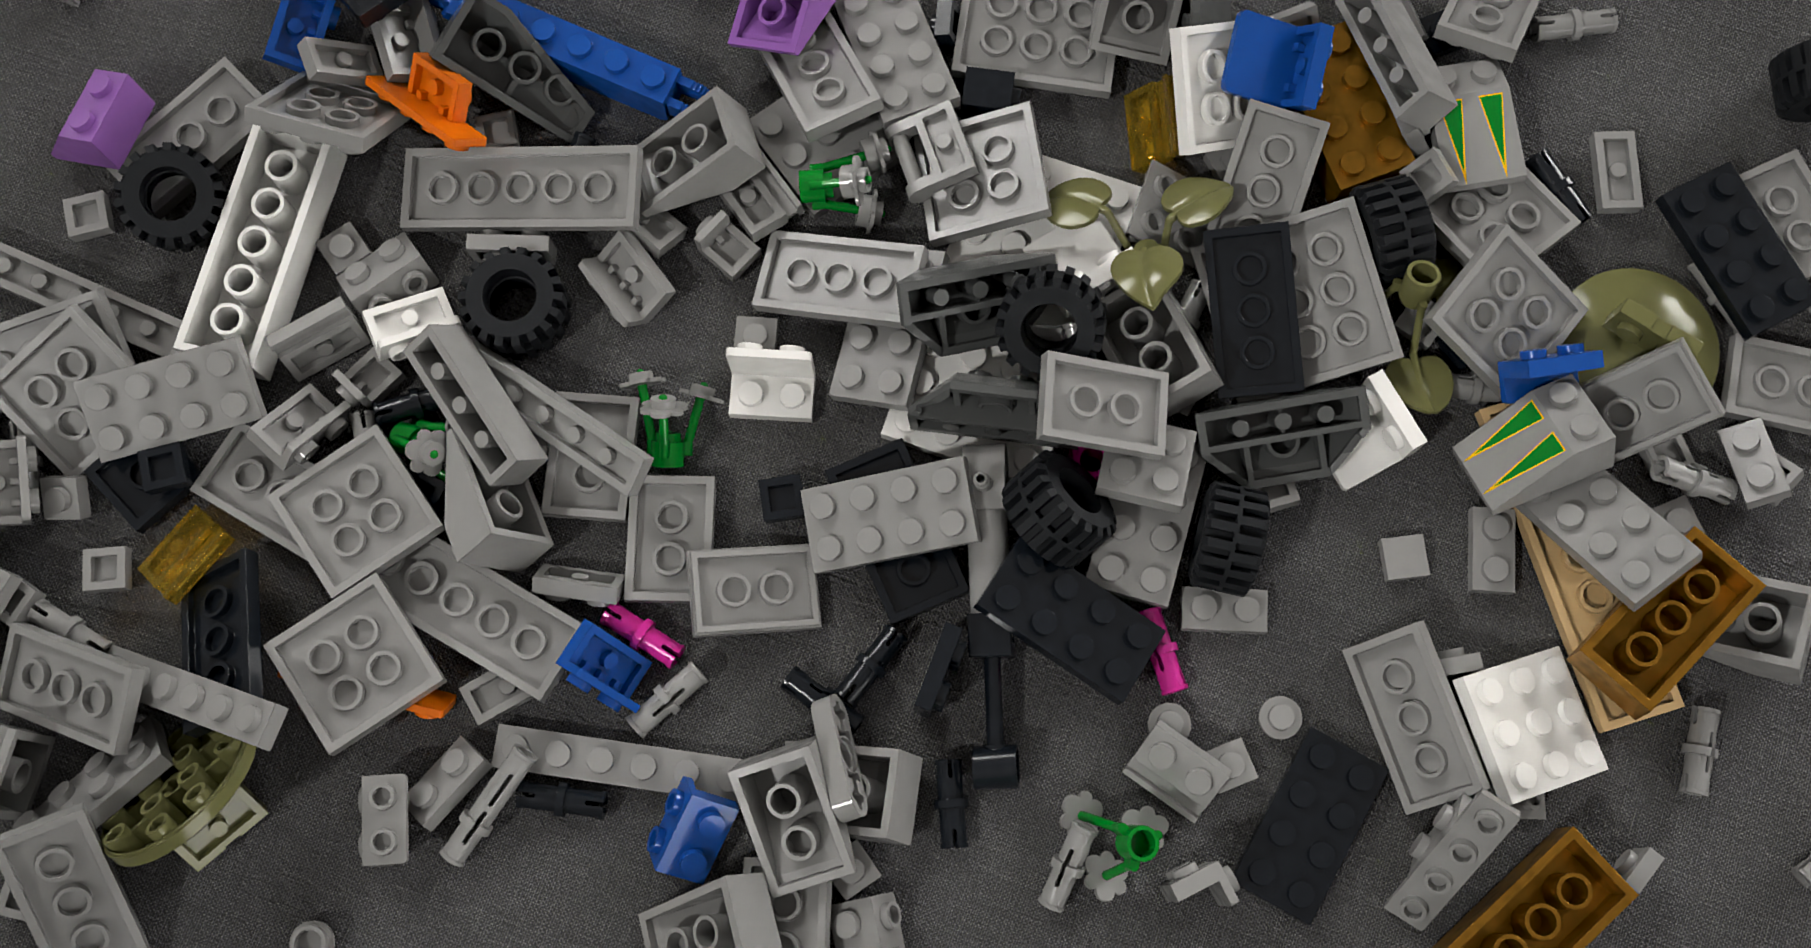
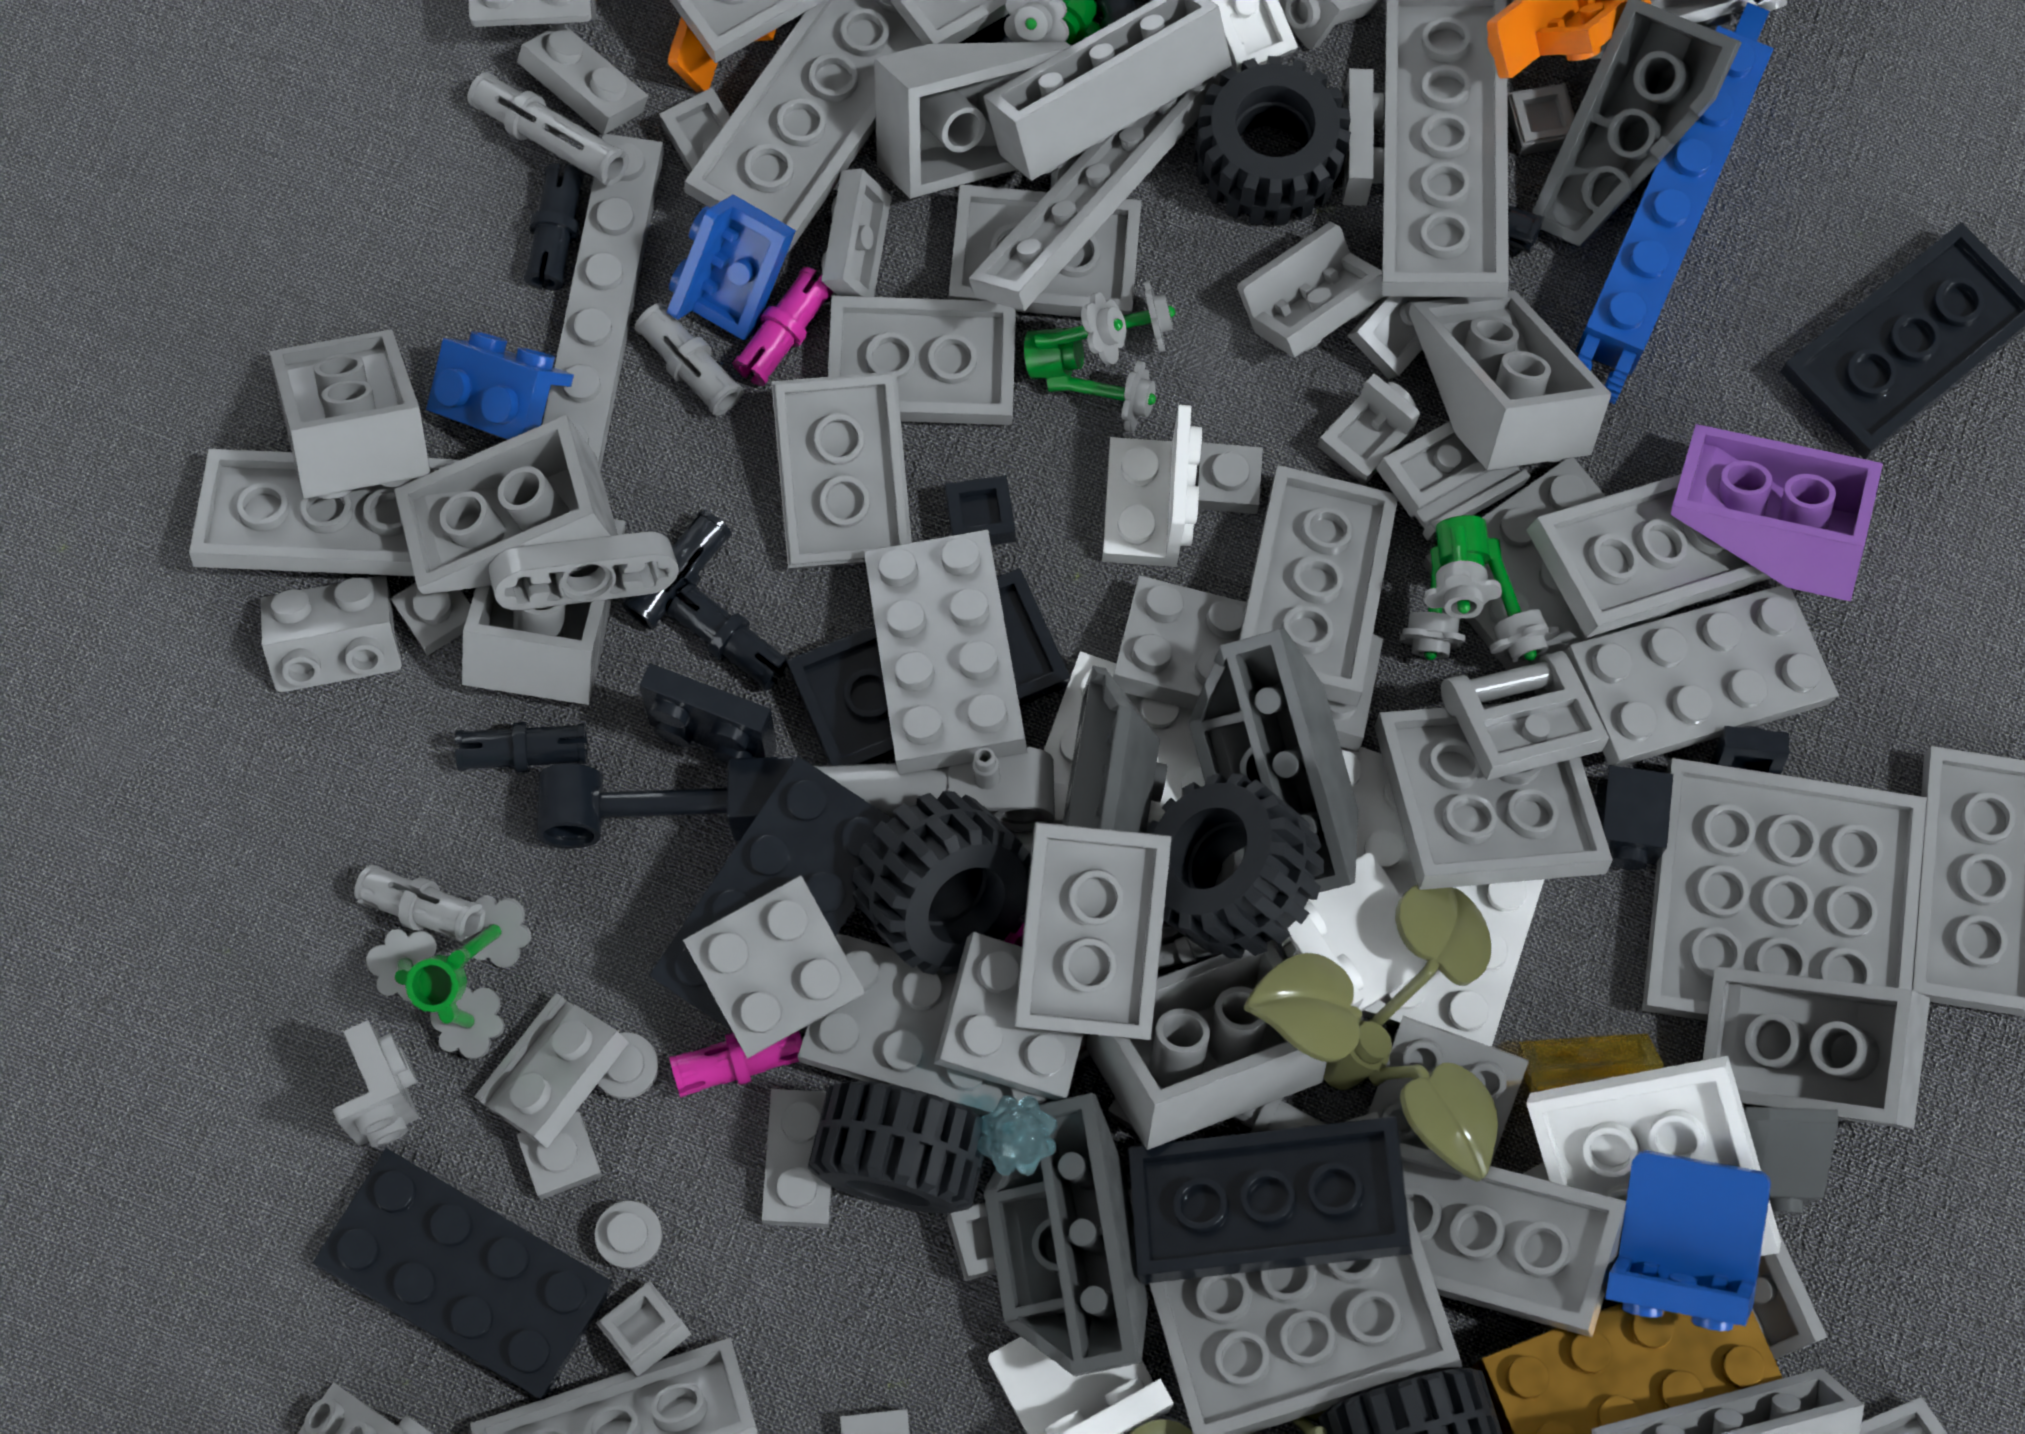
camera: 85 degrees right, 5 degrees down
(1119, 617) = (774, 966): none -> light grey plate
(1225, 460) = (1017, 1135): none -> clear light blue plant
(1340, 705) = (643, 1328): none -> light grey tile

